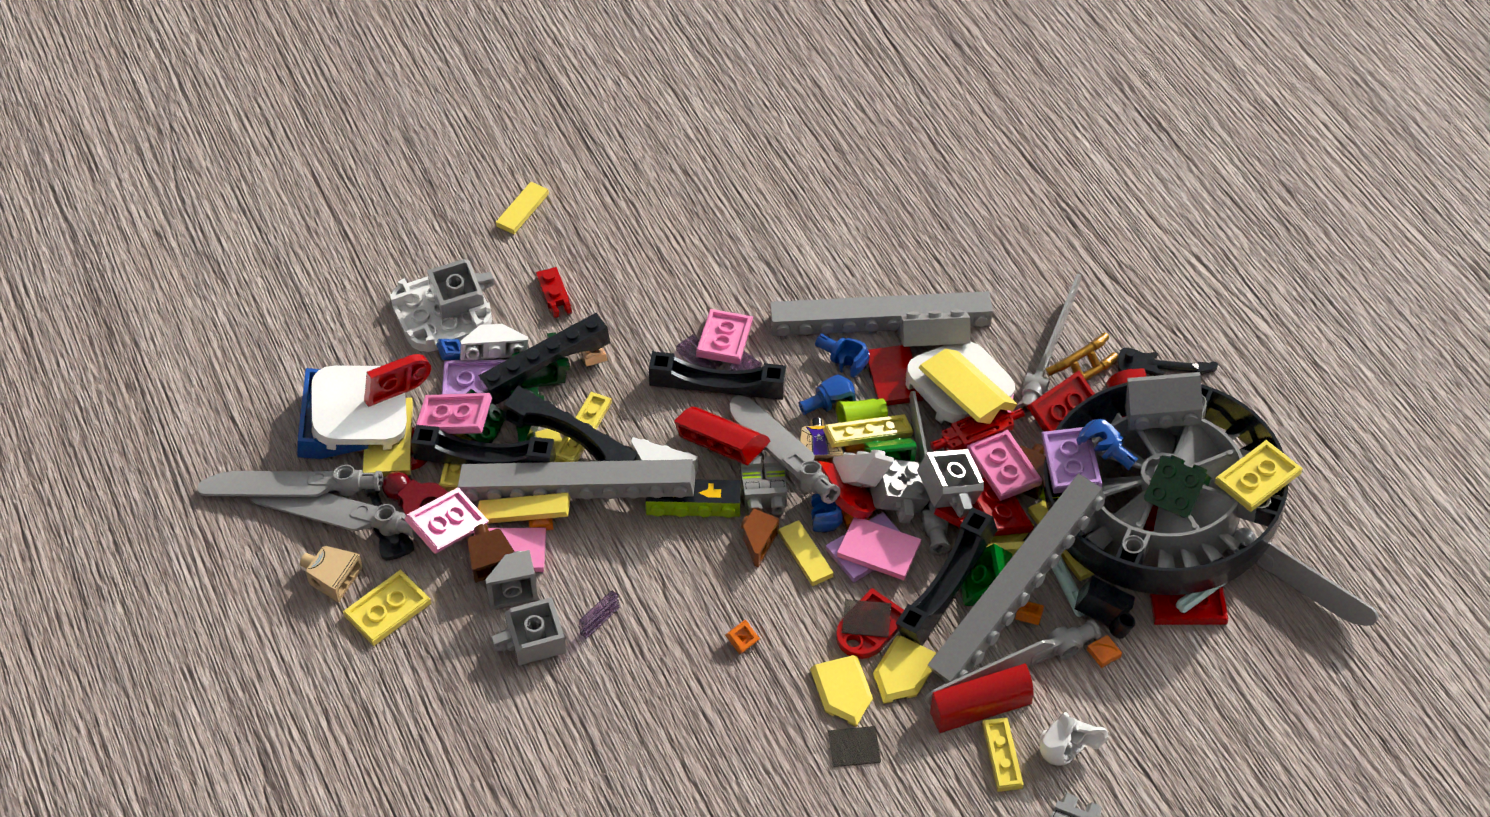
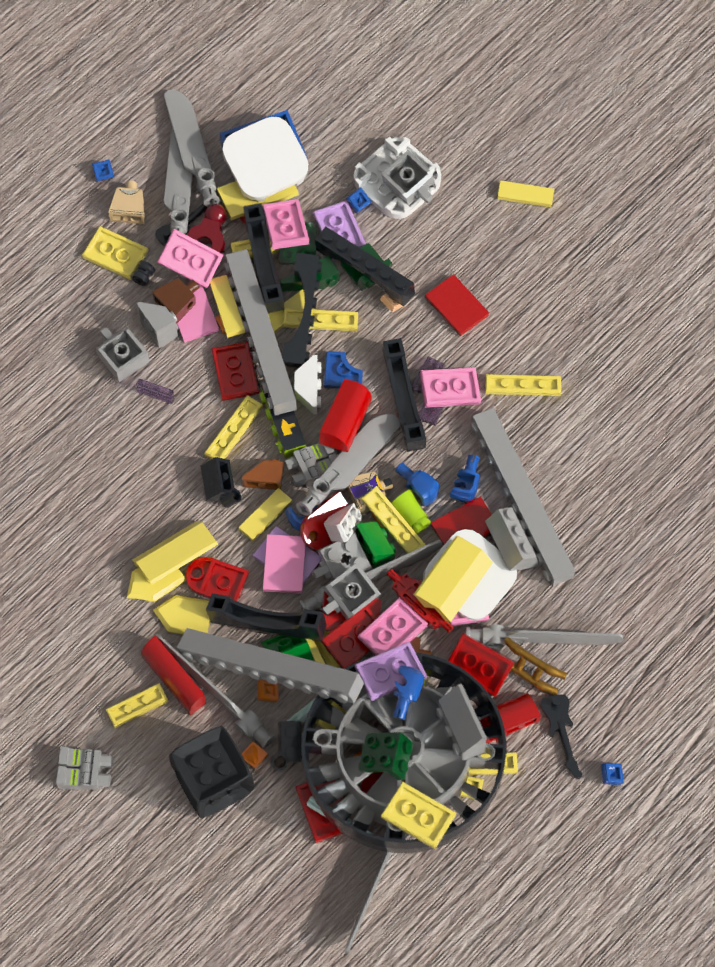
camera: 70 degrees right, 15 degrees up
(267, 586) = (103, 170): none -> blue tile
(395, 378) = (288, 170): red tile -> none
(435, 584) = (143, 272): none -> black wheel
(492, 342) = (372, 224): white slope -> none
(553, 291) = (448, 249): red hinge -> none
(607, 530) = (235, 371): none -> red tile
(626, 303) = (457, 305): none -> red tile
(657, 430) = (338, 369): none -> blue tile
(683, 554) = (234, 428): none -> light yellow tile
(742, 636) = (172, 494): orange tile -> none
(747, 278) = (523, 385): none -> light yellow tile
(750, 581) = (219, 482): none -> black hinge
(822, 651) = (175, 552): none -> light yellow slope
(854, 746) = (110, 601): clear smoke window -> none
(866, 618) = (219, 575): clear smoke window -> none
(1067, 738) = (156, 743): white head -> none
(1127, 683) = (211, 771): none -> black piece
(1222, 336) = (612, 773): none -> blue tile

